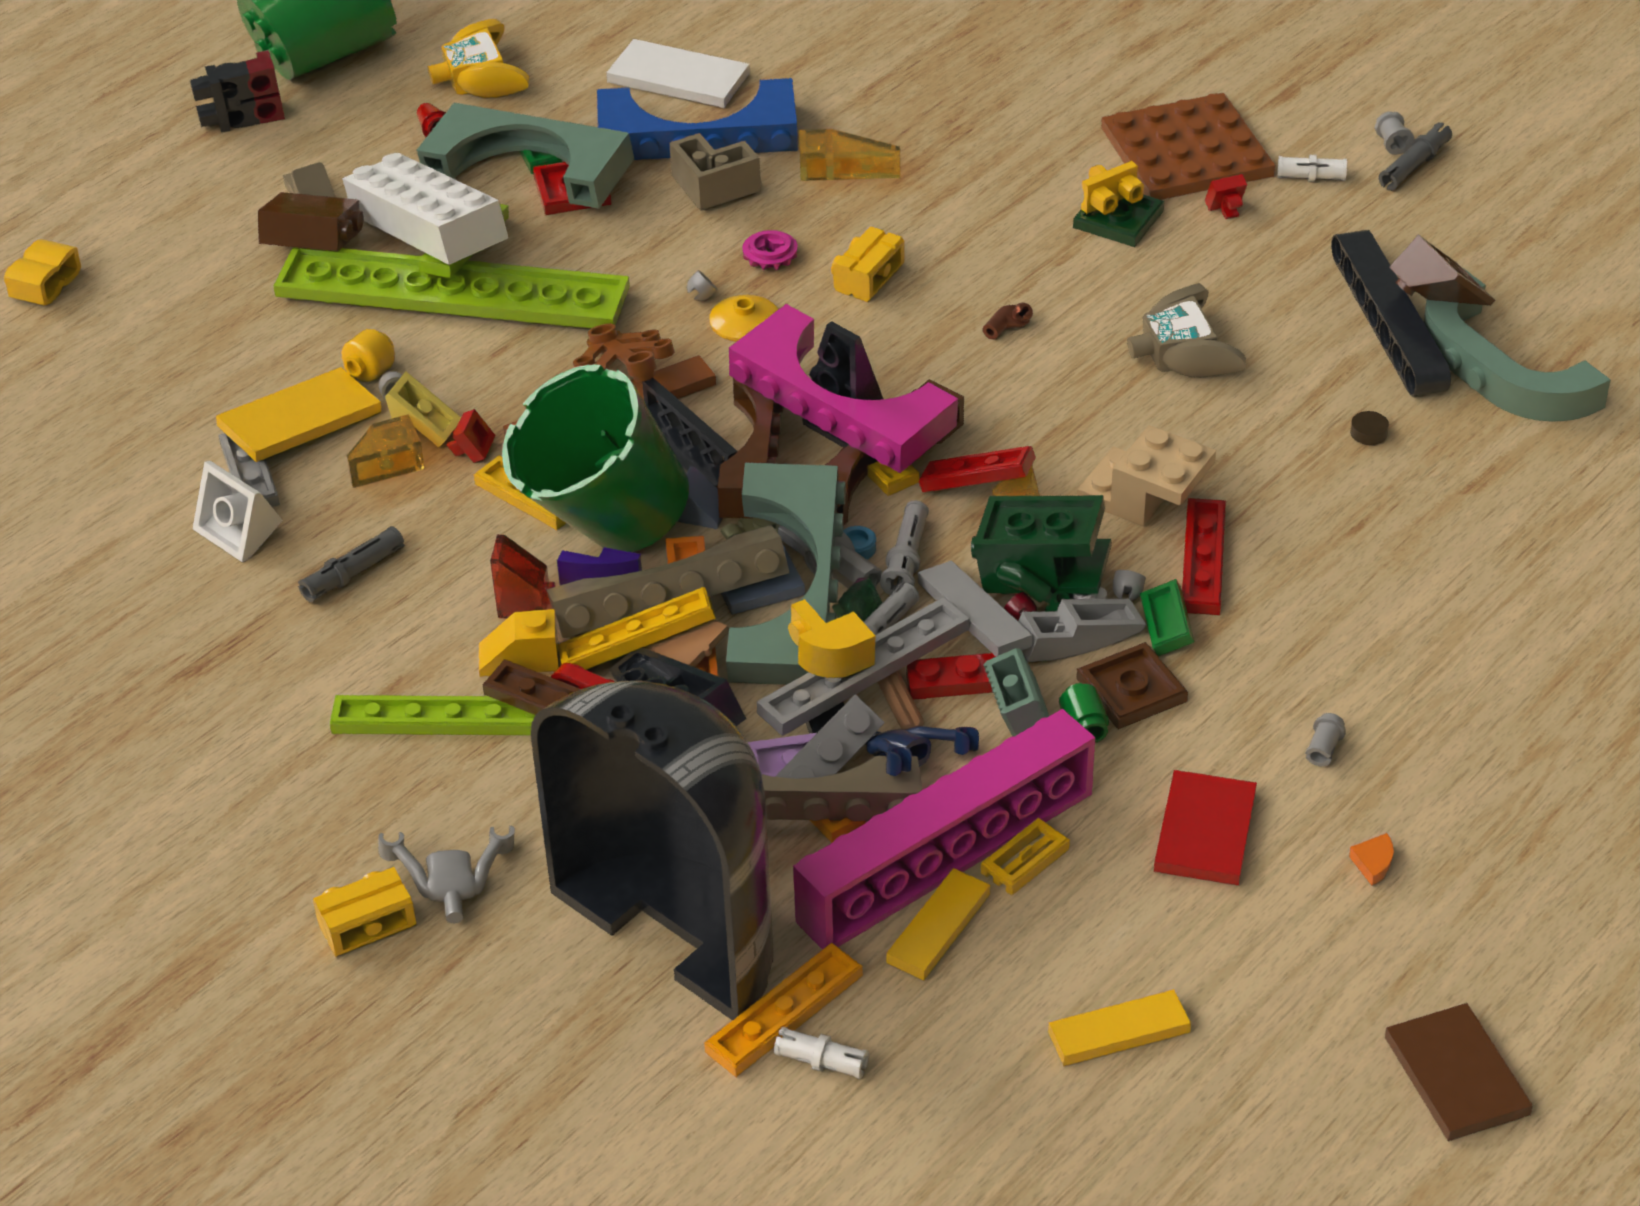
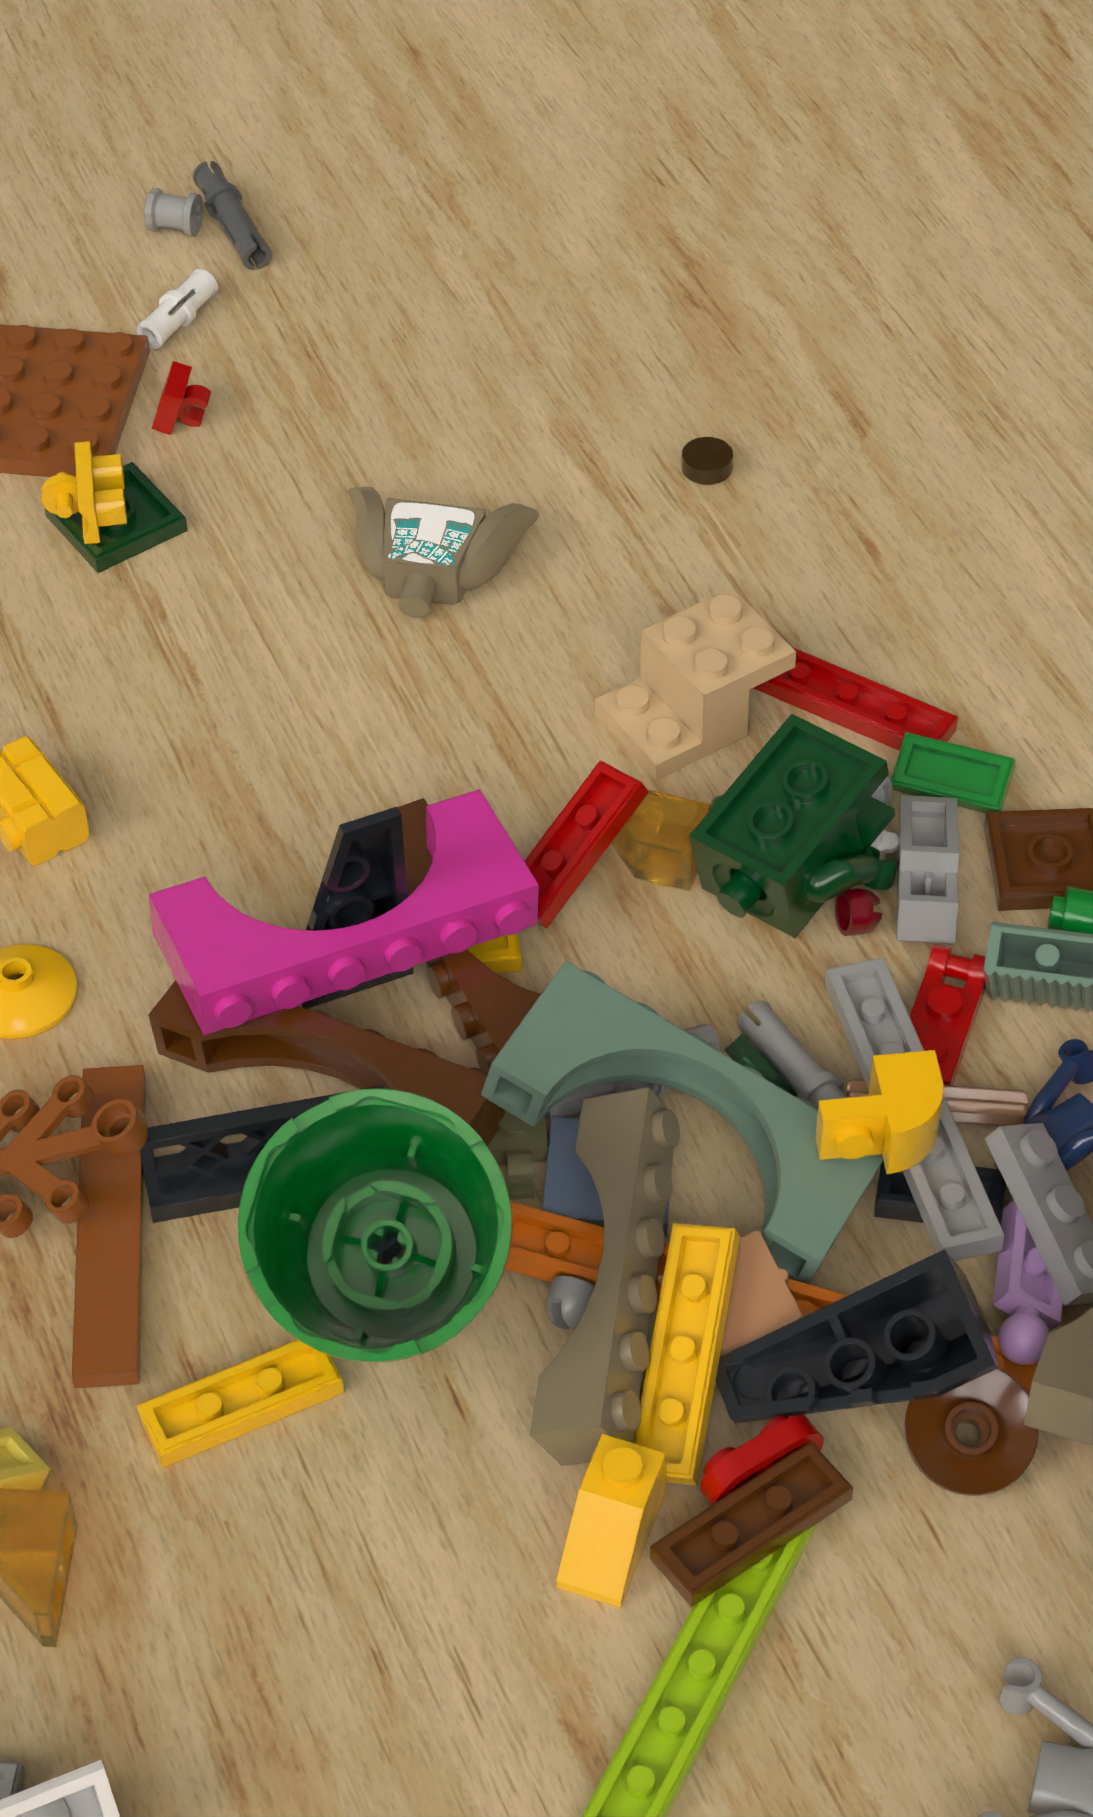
camera: 65 degrees left, 5 degrees up
(339, 571) = (287, 1755): dark grey pin -> none
(472, 437) = (76, 1425): red tile -> none
(518, 579) = (487, 1471): clear red slope -> none
(610, 563) = (508, 1350): dark purple slope -> none
(913, 522) = (685, 994): light grey pin -> none
(988, 619) = (801, 958): light grey tile -> none
(1007, 318) = (251, 703): copper arm -> none
(1390, 313) = (514, 353): black beam -> none
(1436, 276) = (535, 271): slope -> none
(1504, 382) = (654, 319): sand green arch -> none

